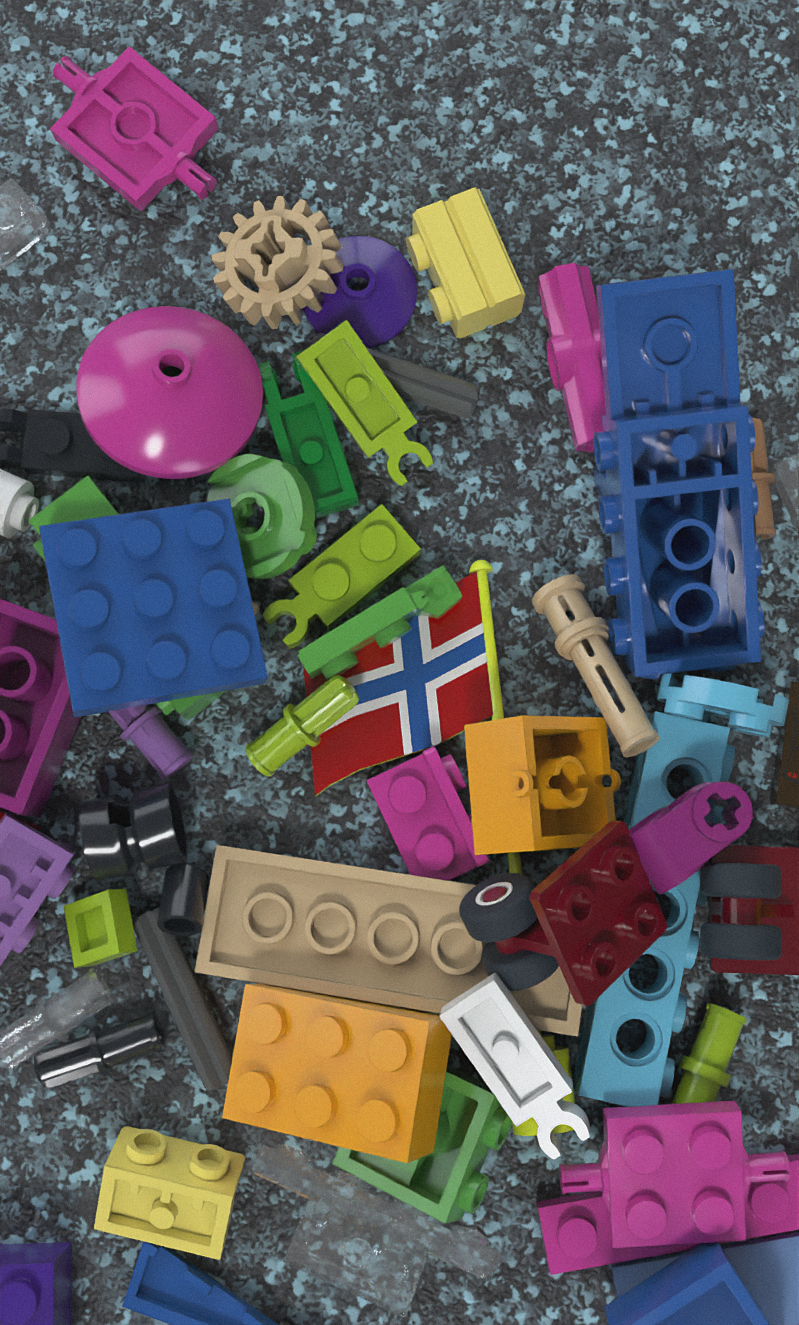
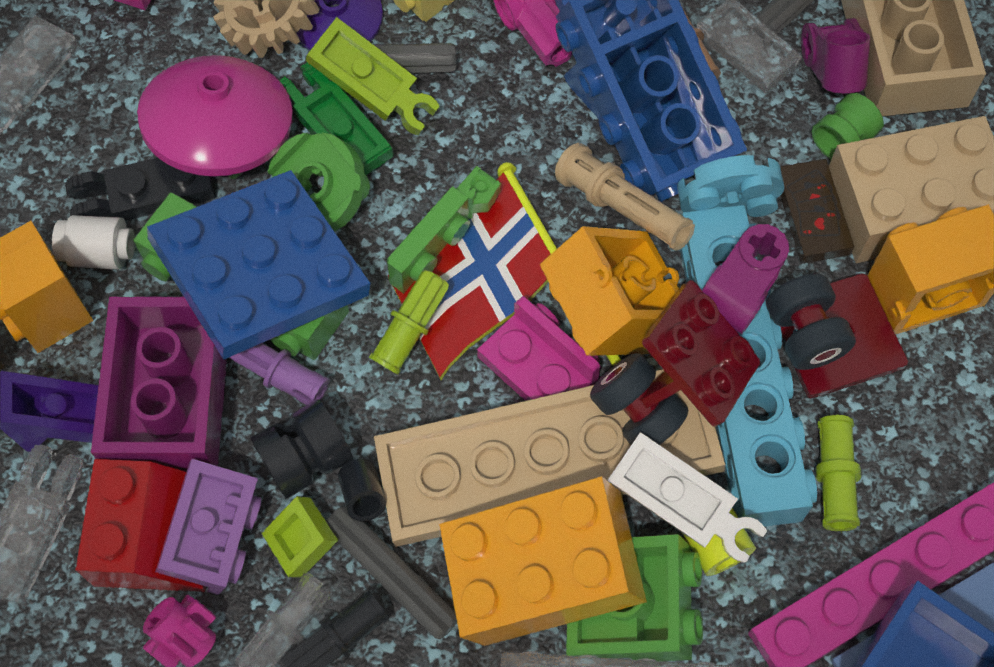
camera: 20 degrees left, 15 degrees down
(345, 574) = (400, 207): lime plate -> none
(674, 1174) = (847, 548): dark pink plate -> none

